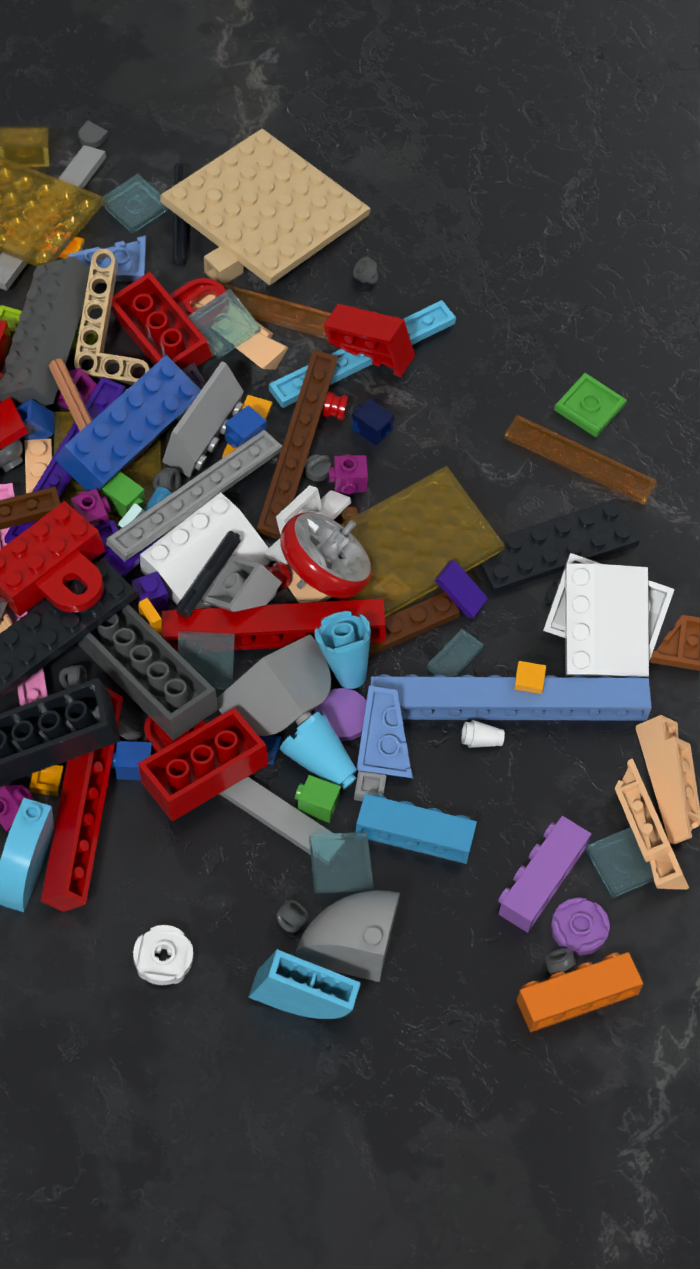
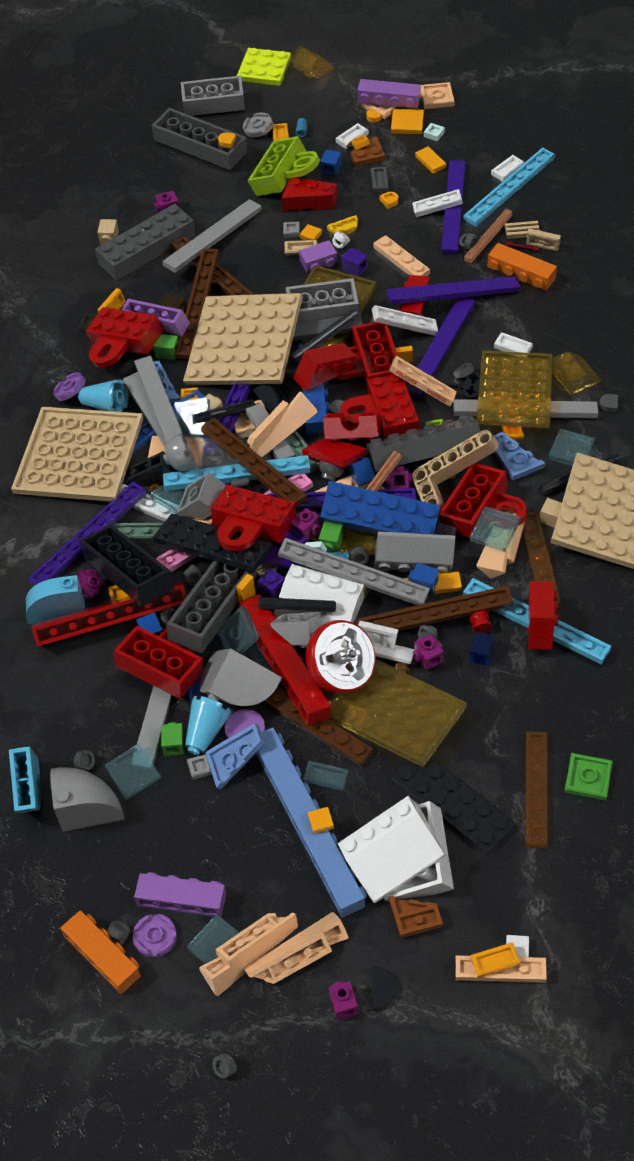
camera: 75 degrees right, 5 degrees down
(172, 969) = (30, 713): white plate -> none
(345, 646) = (278, 698): medium azure cone -> none
(366, 270) = (607, 591): dark grey tile -> none
(416, 828) = (177, 804): dark azure brick -> none
(461, 589) = (374, 753): dark purple tile -> none
(481, 735) = (269, 813): white cone -> none

